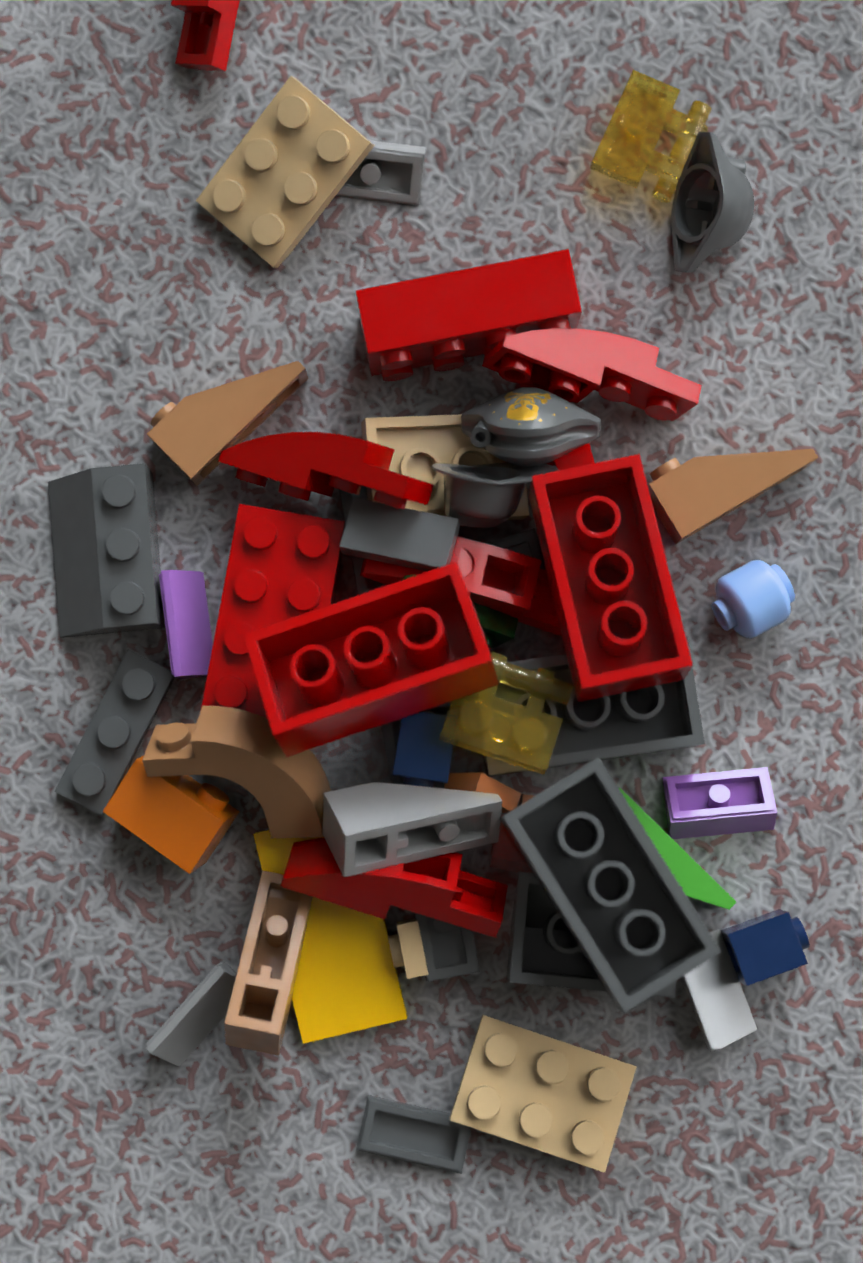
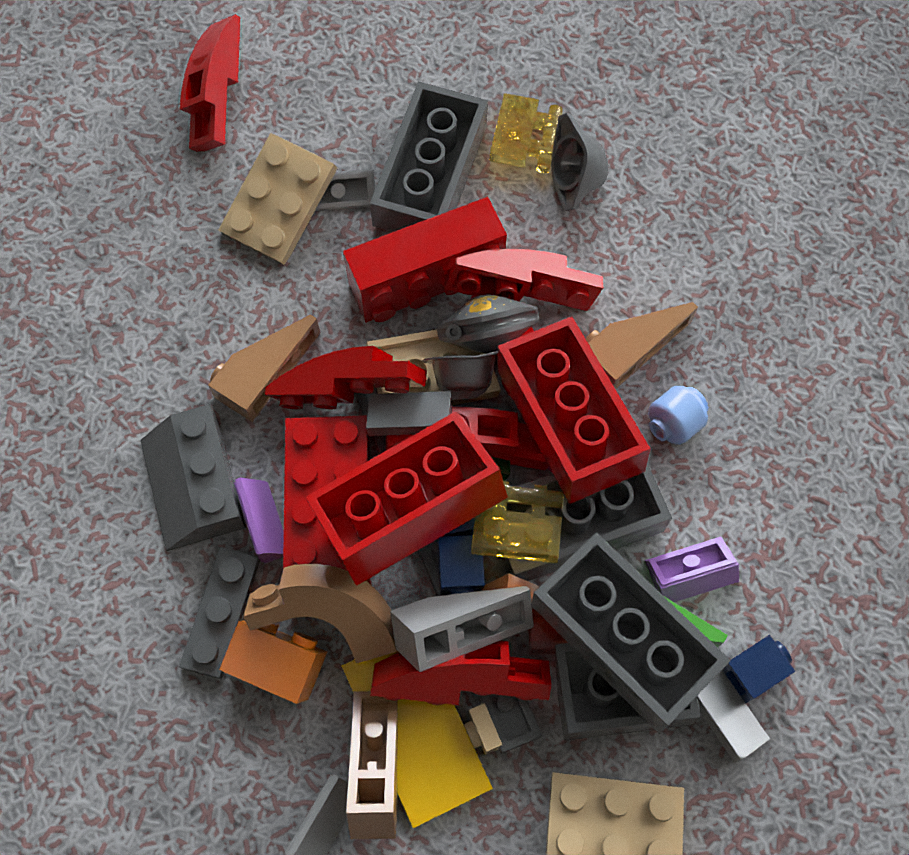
camera: 10 degrees left, 15 degrees down
(505, 159) = (429, 157): none -> dark grey brick

